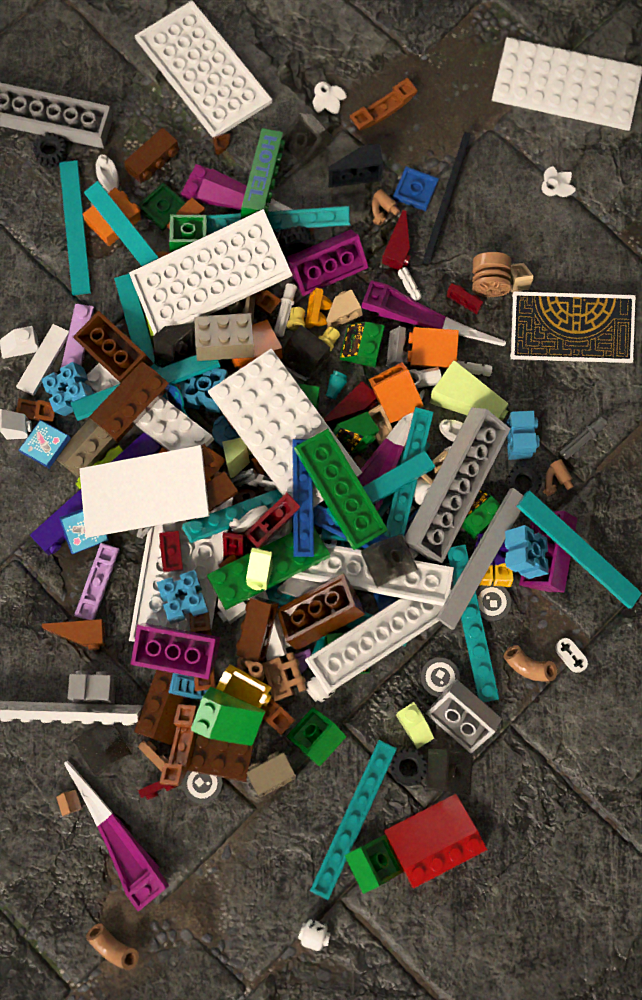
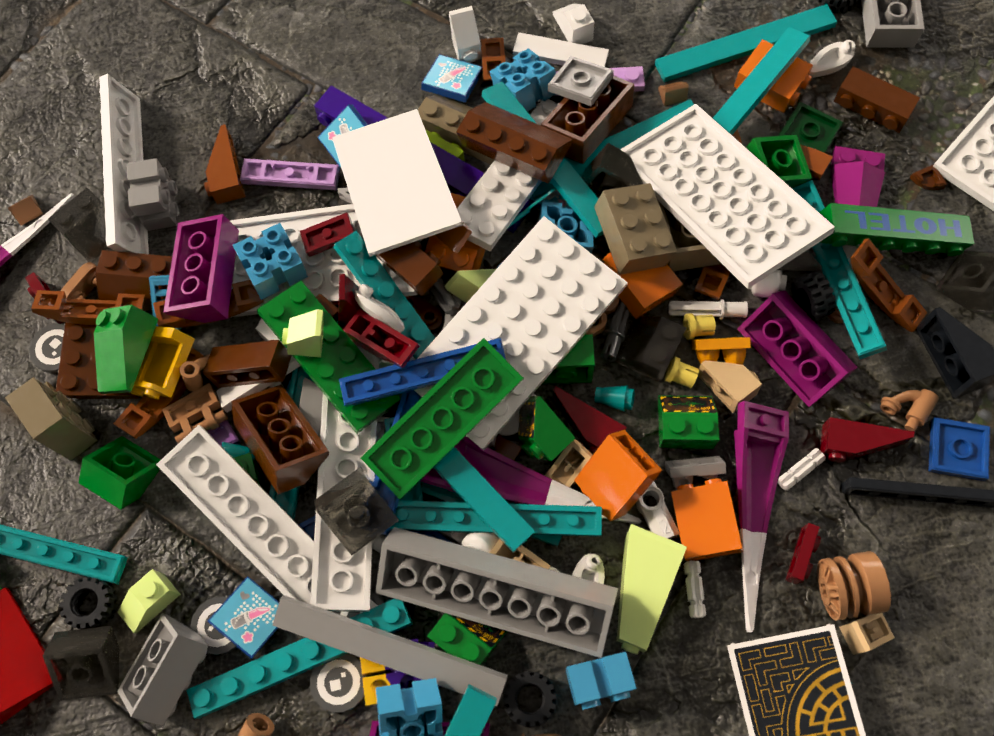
camera: 85 degrees right, 5 degrees down
(86, 346) = (580, 80): none -> light grey tile
(103, 288) = (673, 93): none -> medium nougat slope
(301, 196) = (882, 288): none -> dark orange slope
(440, 653) = (246, 617): none -> medium azure tile

